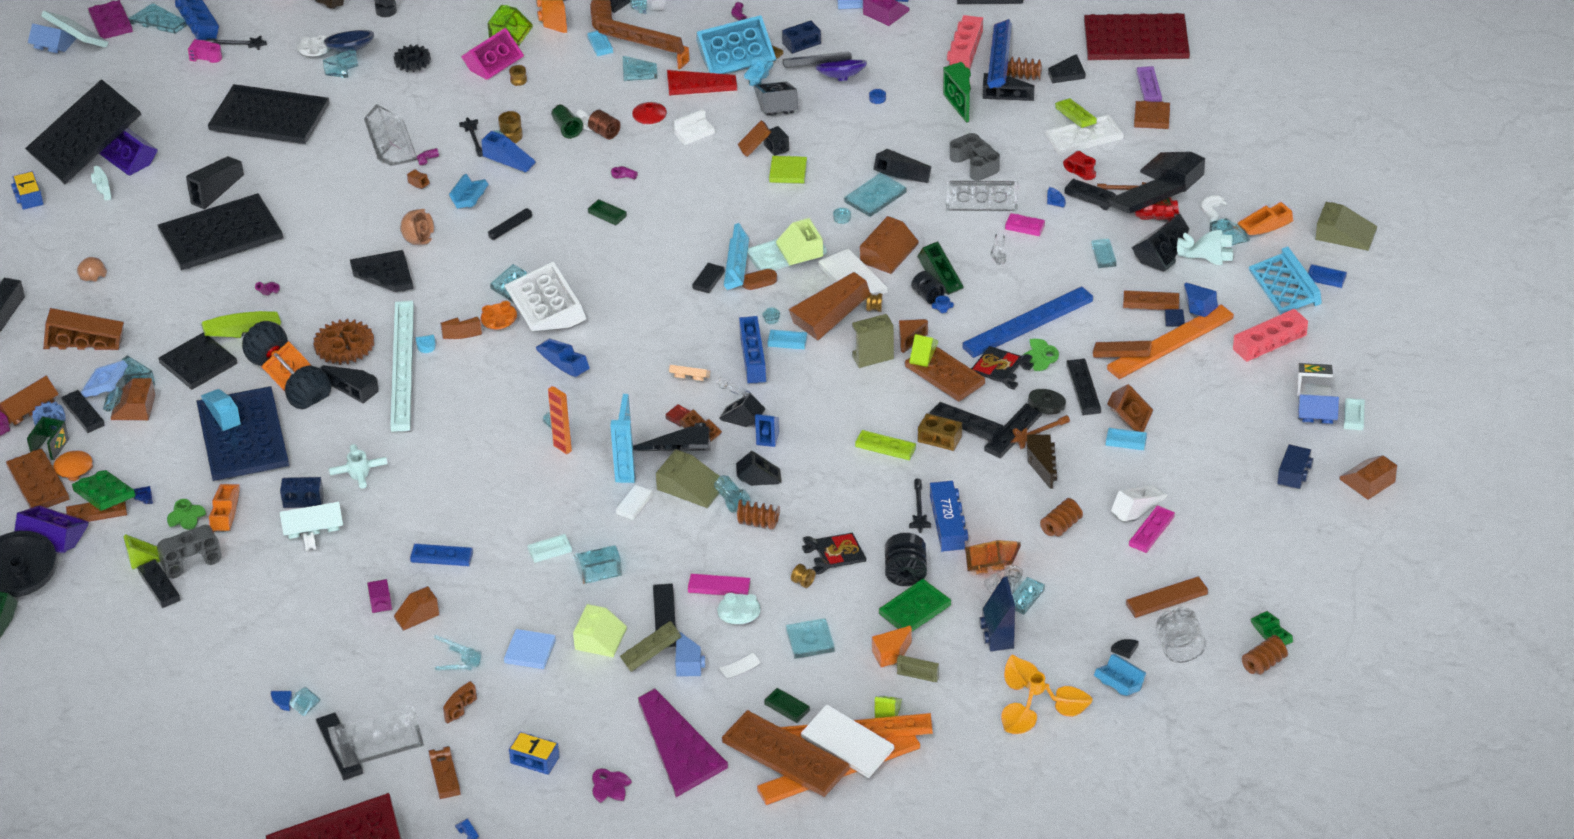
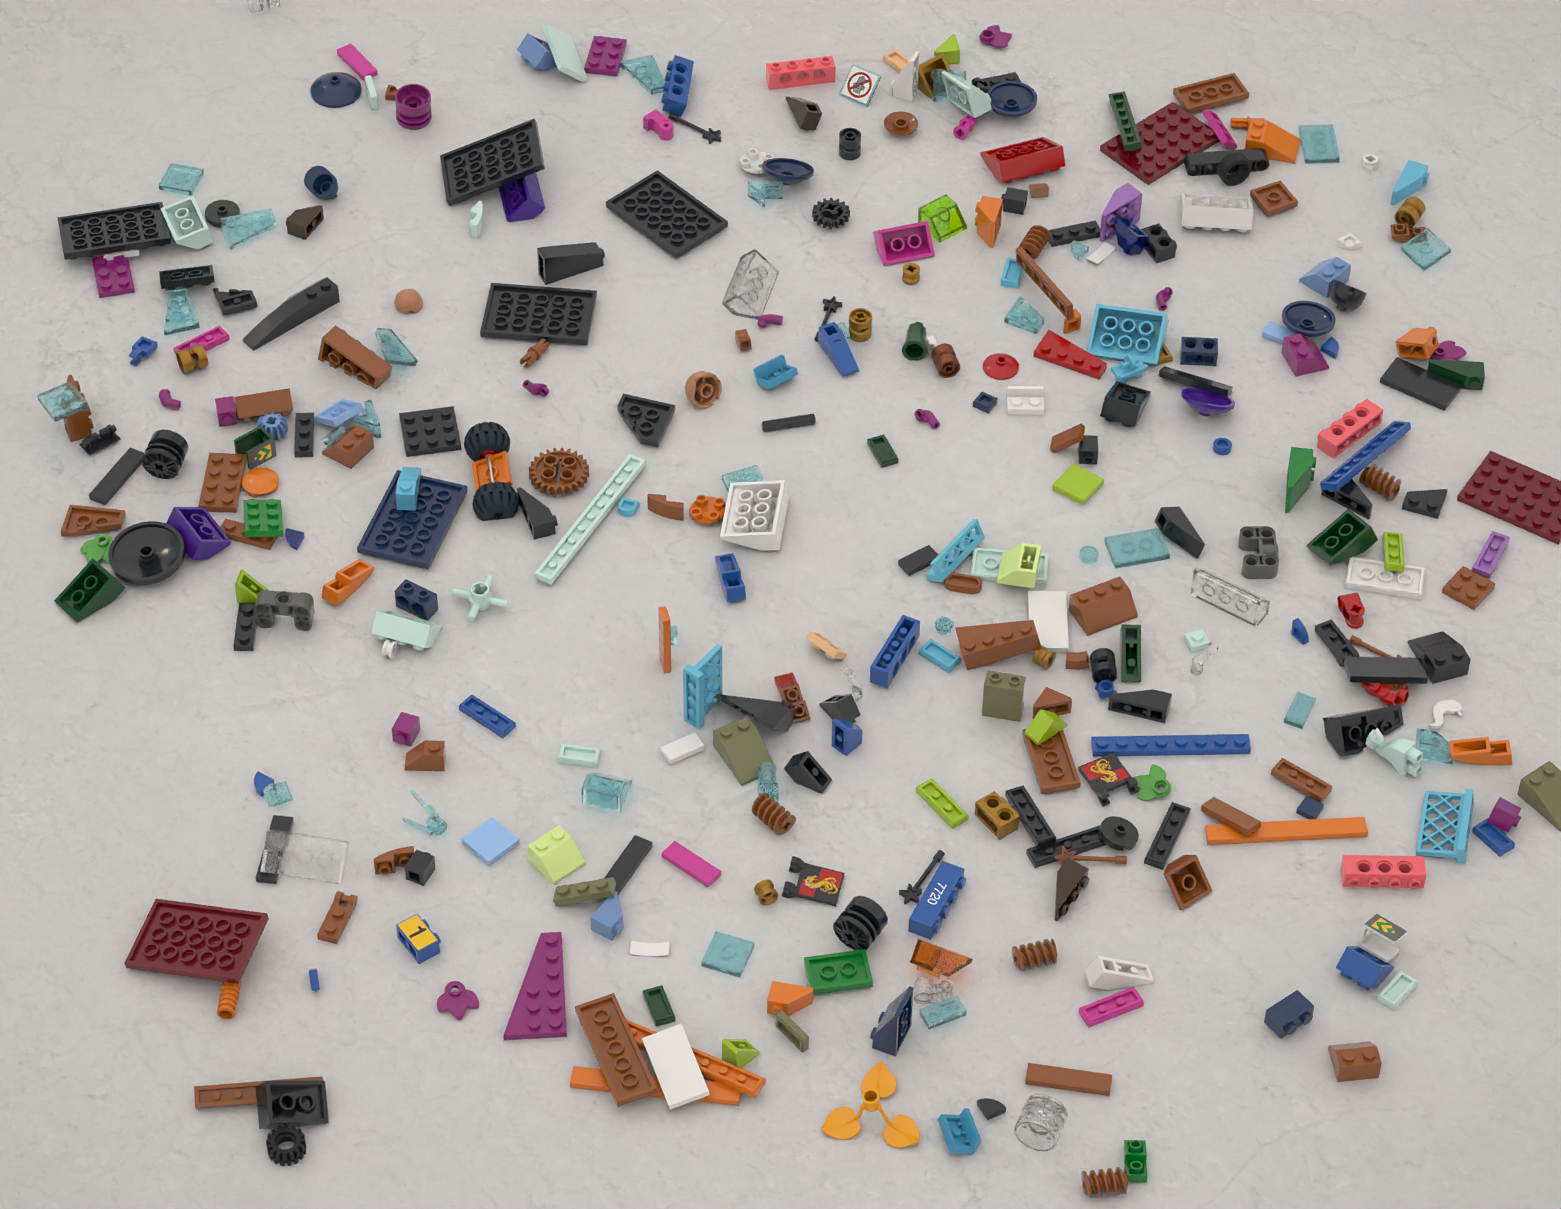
camera: 30 degrees right, 5 degrees up
(27, 190) = (411, 198): brick -> none
(111, 309) = (394, 349): none -> clear light blue wing
(185, 514) = (312, 573): bright green plate -> none
(235, 324) = (483, 411): lime slope -> none
(242, 262) = (534, 353): none -> dark orange pin
(487, 697) = (420, 867): none -> black brick
(660, 143) = (985, 402): none -> dark blue tile
(738, 608) = (689, 894): light aqua piece -> none
(901, 294) = (1077, 660): none -> dark orange piece
(981, 239) = (1196, 640): none -> light aqua plate
(982, 301) = (1143, 704): none -> black slope
(1025, 224) = (1250, 645): dark pink plate -> none
(1032, 118) = (1343, 539): none -> dark green slope
(1126, 439) = (1162, 907): medium azure tile -> none
(1200, 300) = (1343, 803): blue slope -> none
(1324, 254) = (1505, 815): none -> magenta brick

